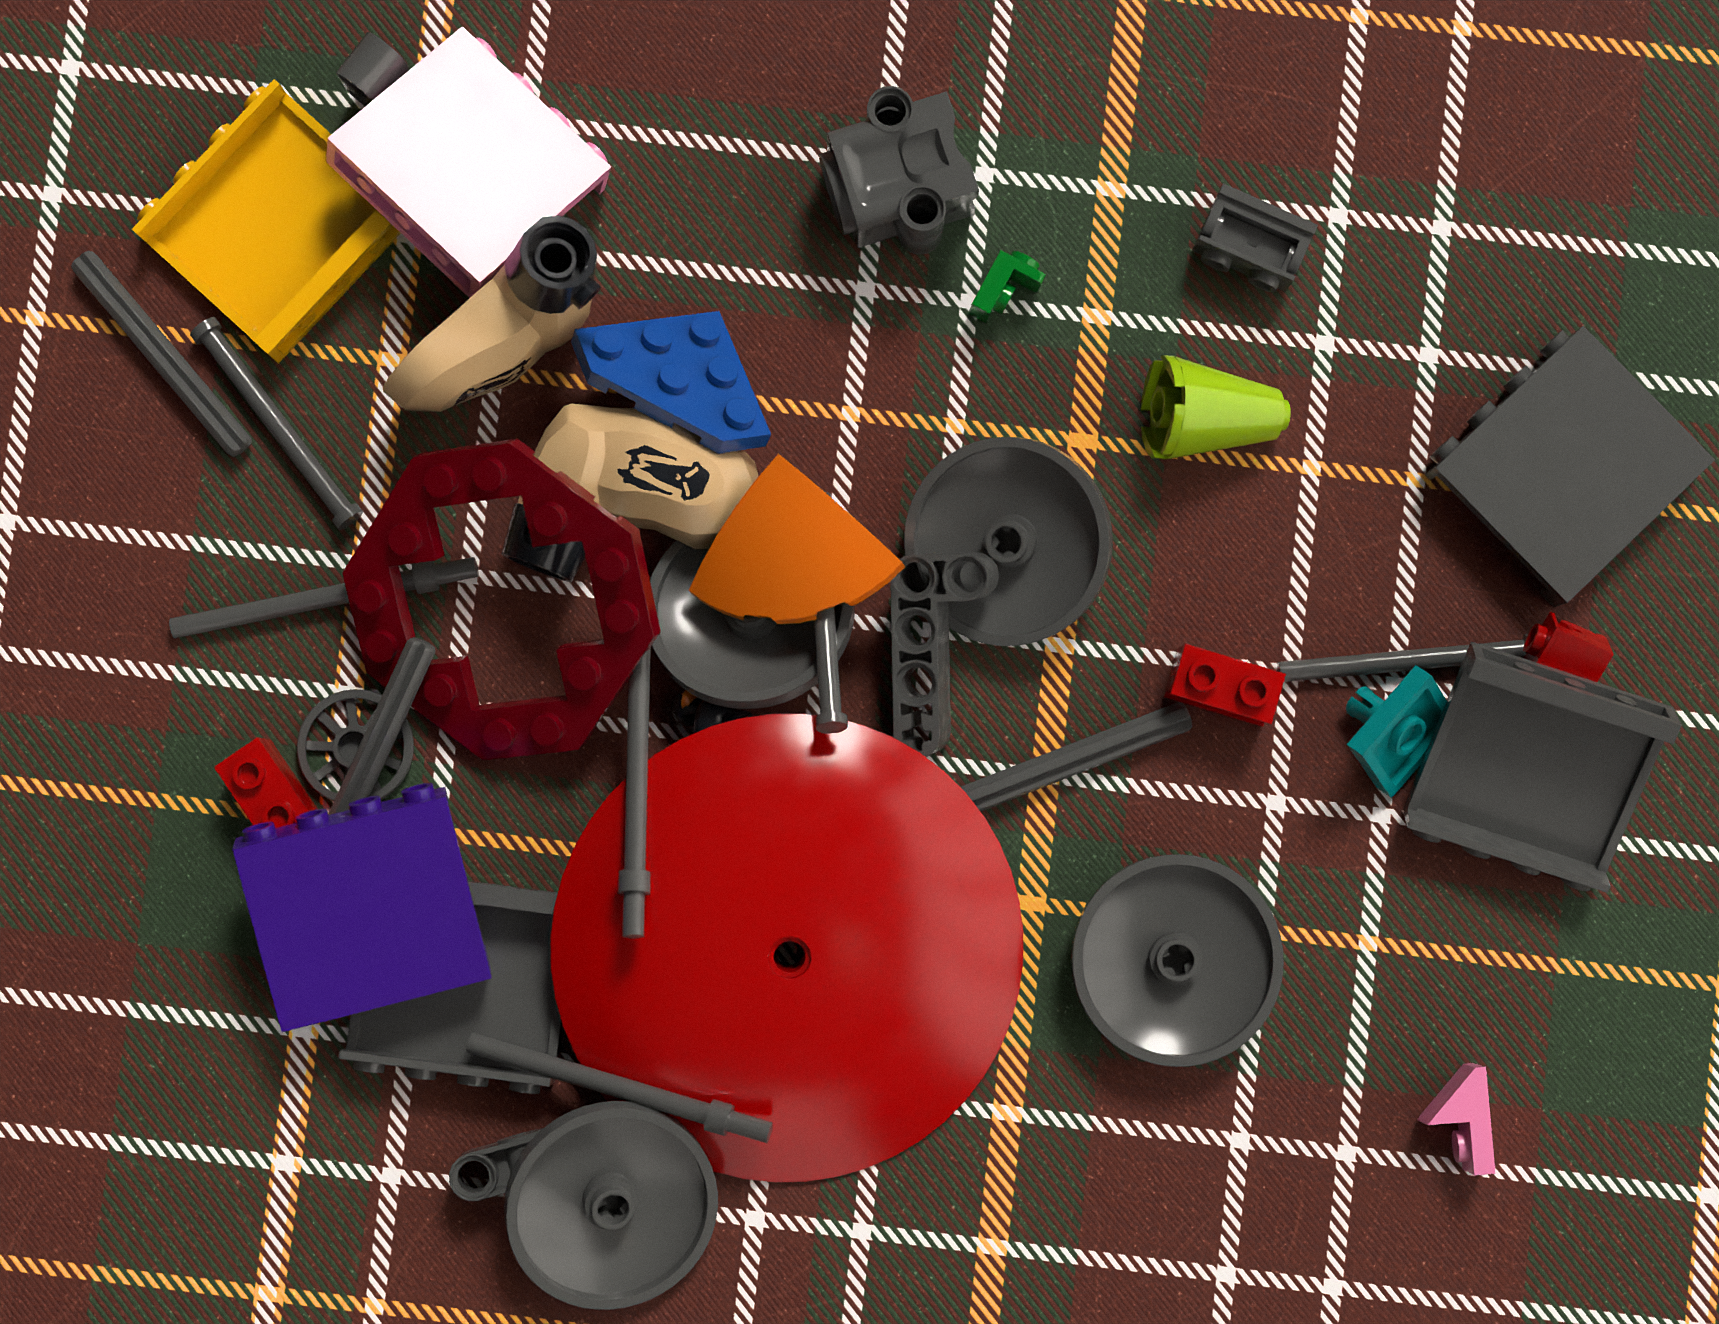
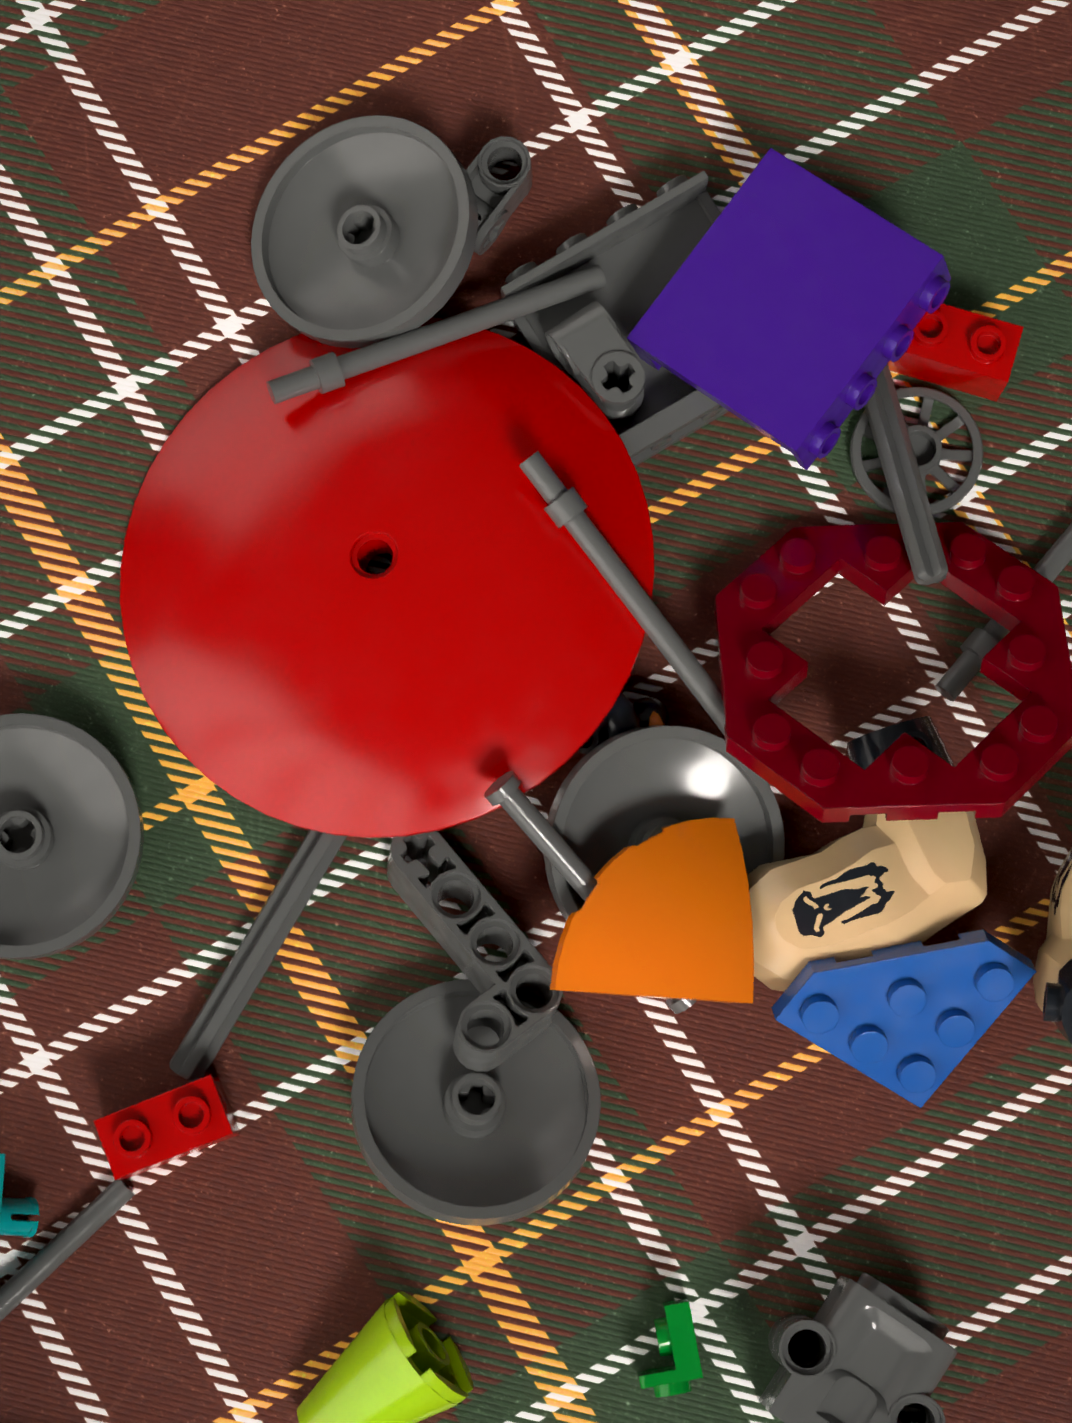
camera: 145 degrees right, 5 degrees down
(521, 989) = (595, 353): none -> dark grey piece

